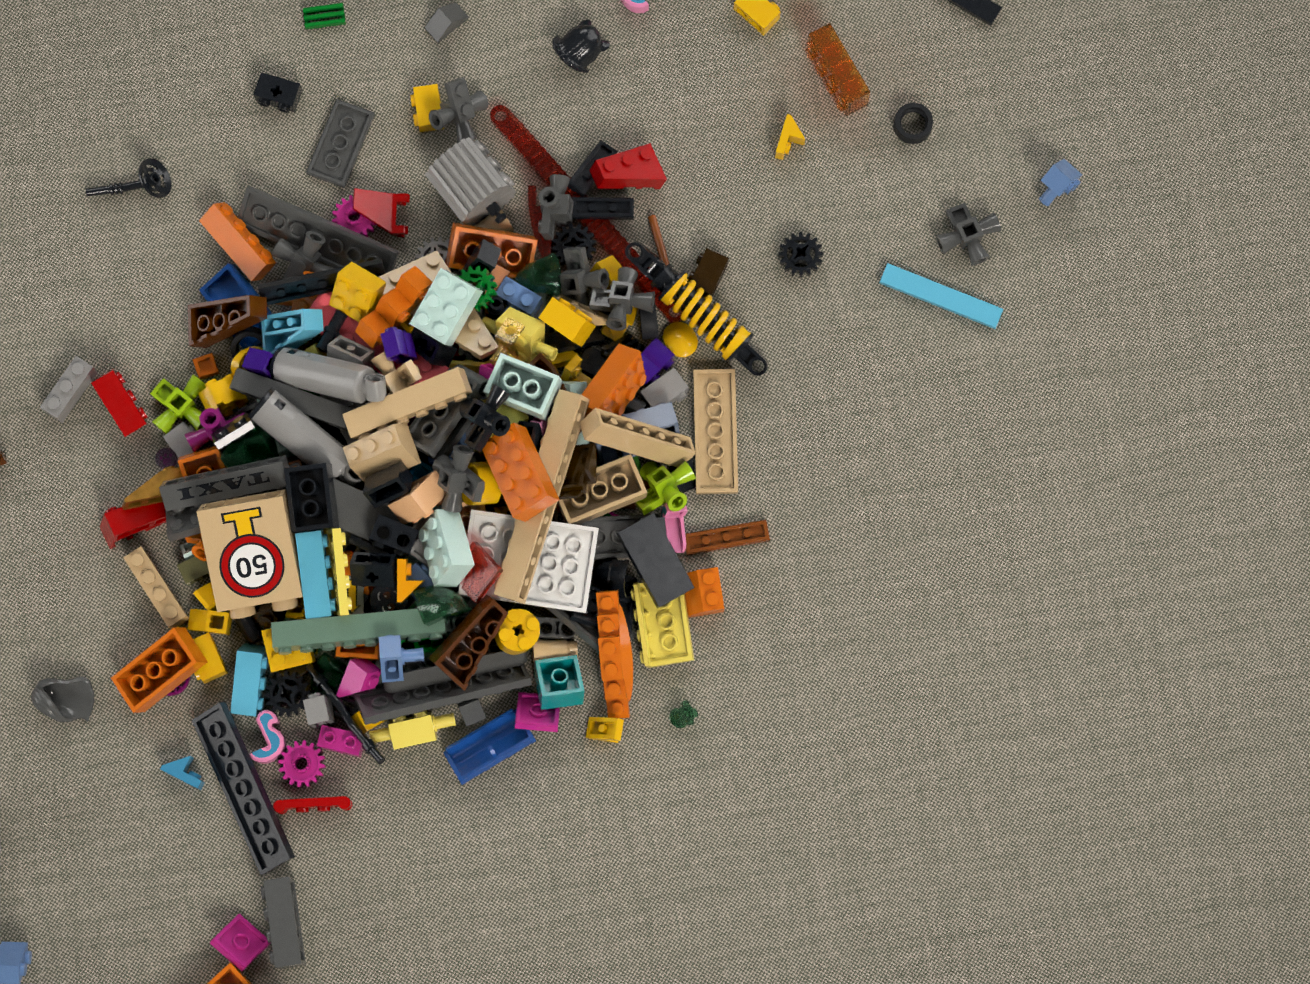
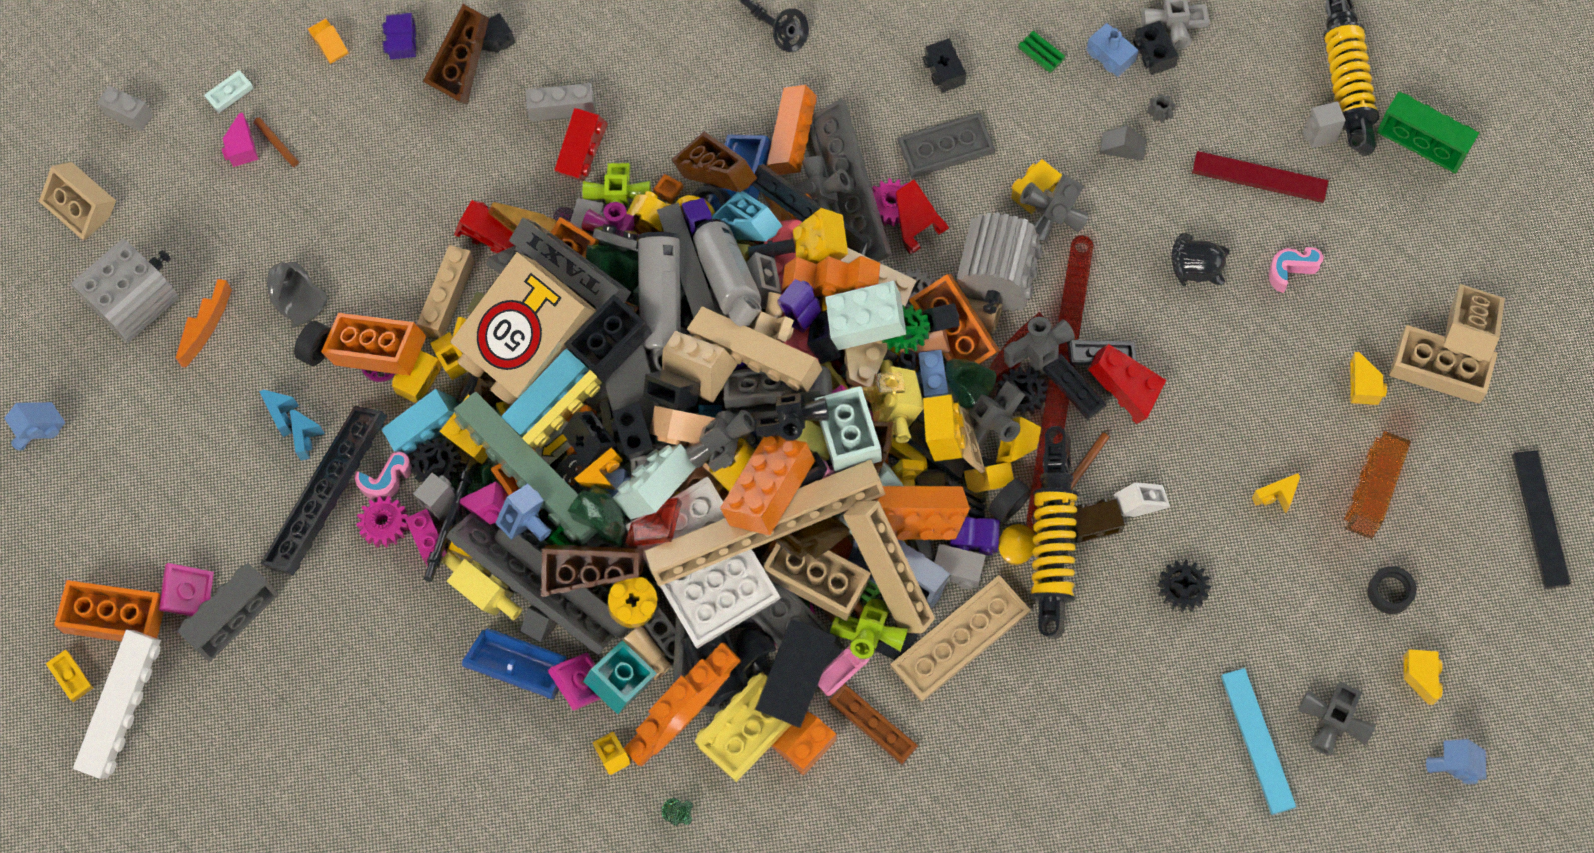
camera: 55 degrees right, 10 degrees down
(32, 791) = (199, 329): none -> orange slope
(118, 713) = (311, 342): none -> black tyre
(144, 777) = (278, 406): none -> dark azure slope
(303, 805) = (359, 565): red plate -> none
(621, 299) = (1004, 460): dark grey brick -> none
(718, 231) = (1141, 499): none -> white slope
(983, 153) = (1422, 673): none -> yellow slope

